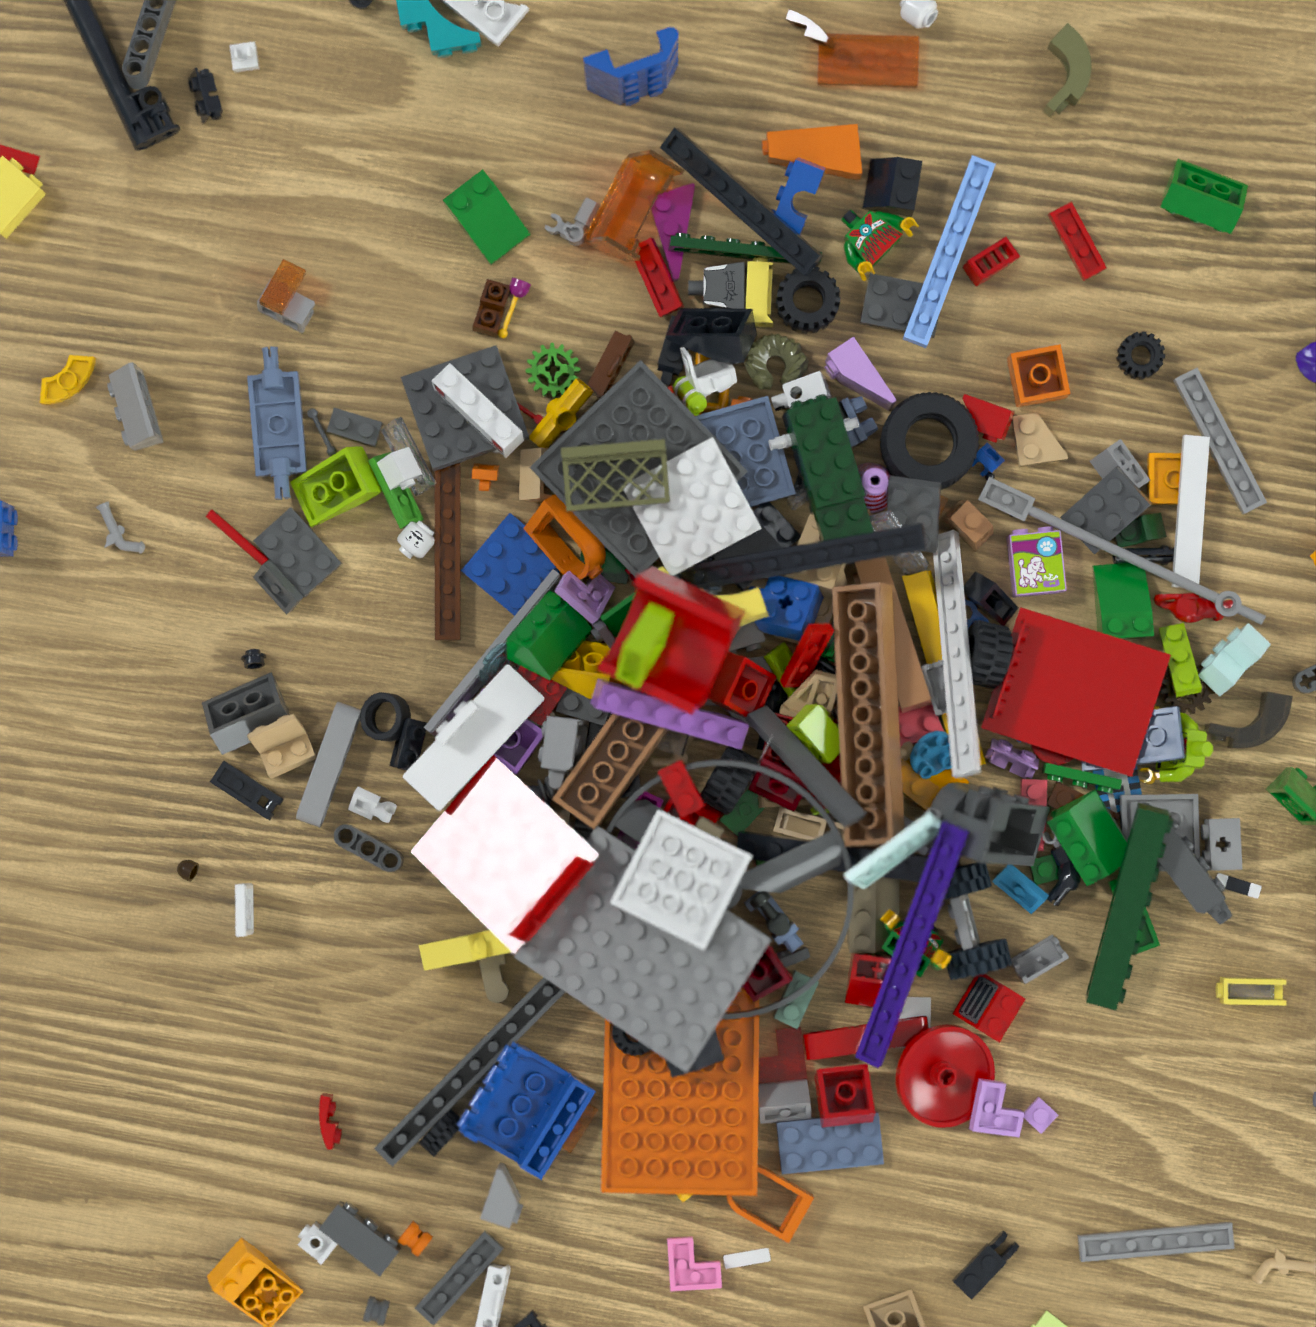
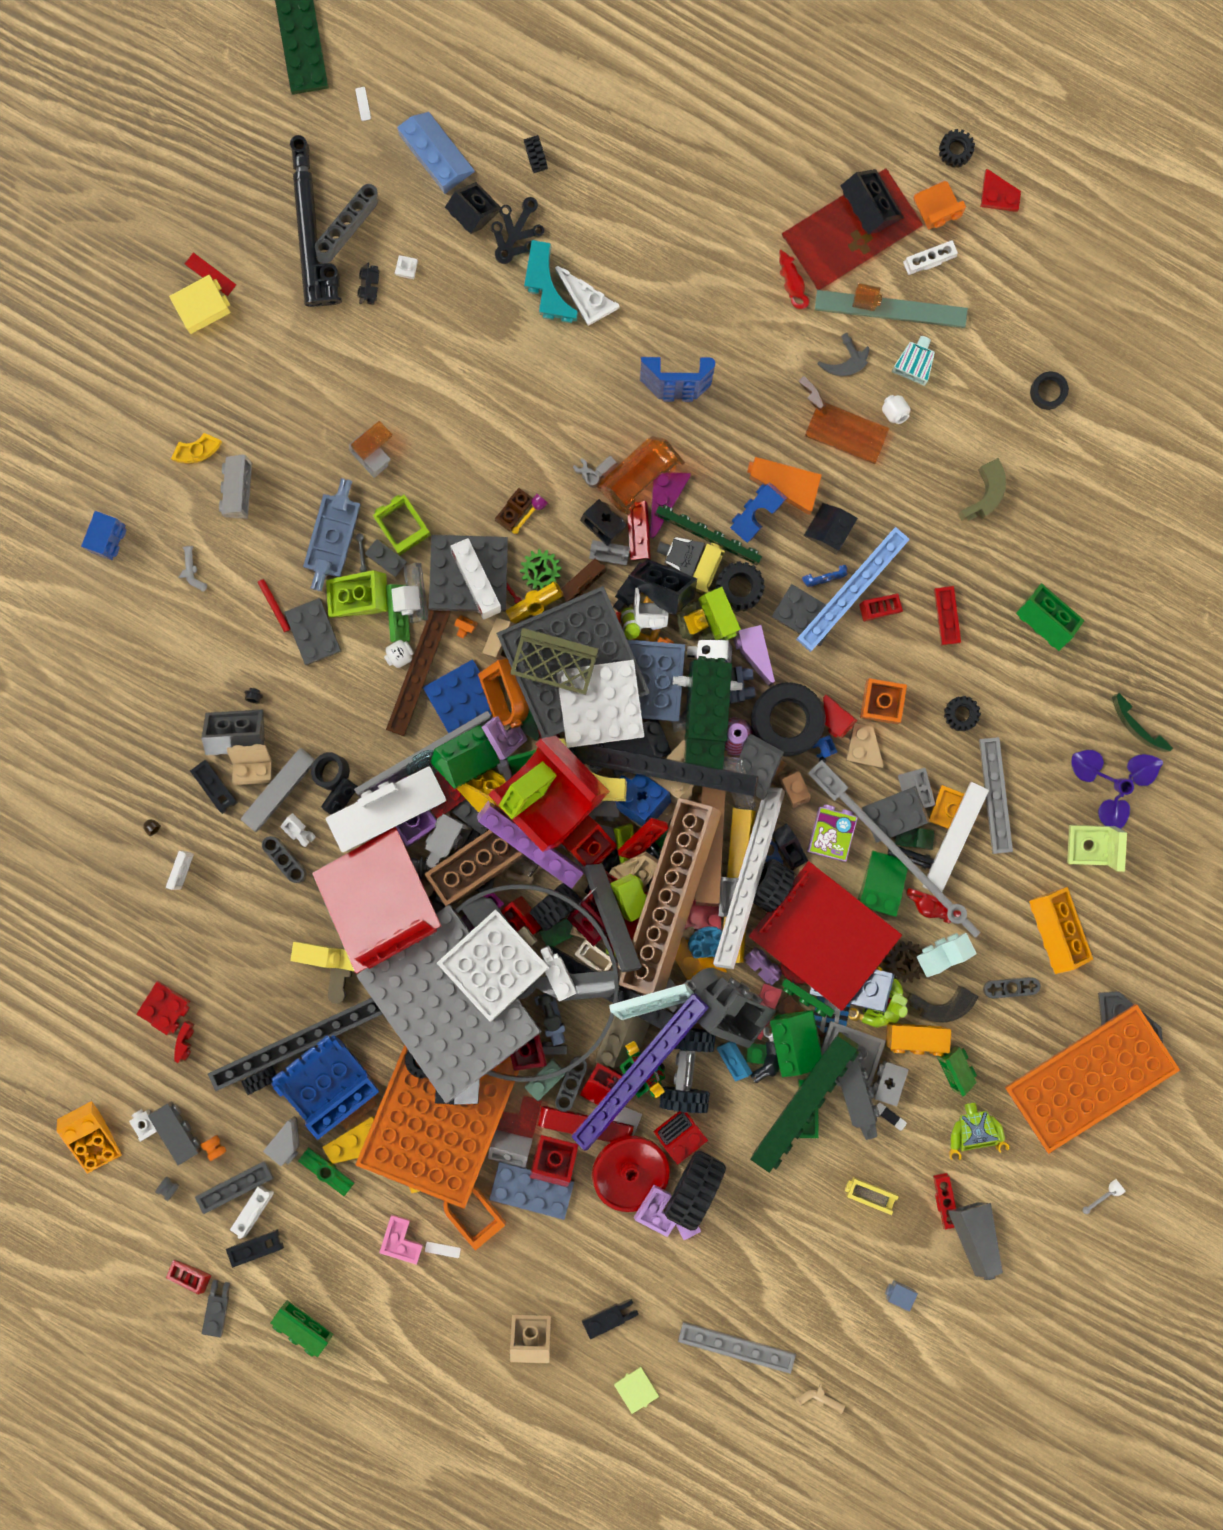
camera: 20 degrees right, 0 degrees up
(278, 587) = (289, 651): dark grey plate -> none
(288, 1089) = (164, 1008): none -> red plate
(378, 395) = (413, 540): none -> lime window
(486, 217) = (534, 443): green slope -> none
(583, 1170) = (348, 1144): none -> yellow wing
(583, 1221) = (315, 1163): none -> green piece
(597, 285) = (607, 530): none -> black brick
(630, 317) = (613, 553): none -> light grey hinge
(681, 788) = (518, 900): red plate -> none
(741, 201) = (718, 499): black plate -> none
(766, 862) = (558, 975): none -> white hinge
(770, 362) = (696, 621): none -> yellow tile
(796, 343) = (719, 614): none -> lime window
(834, 1004) = (568, 1092): none -> dark grey beam
(872, 238) = (802, 559): torso -> none
(892, 261) = (810, 581): none -> blue piece
(1034, 1065) = (695, 1190): none -> black tyre
(1038, 959) = (728, 1115): light grey hinge -> none
(1181, 663) = (909, 940): lime plate -> none
(1238, 776) = (918, 1038): none -> light orange brick

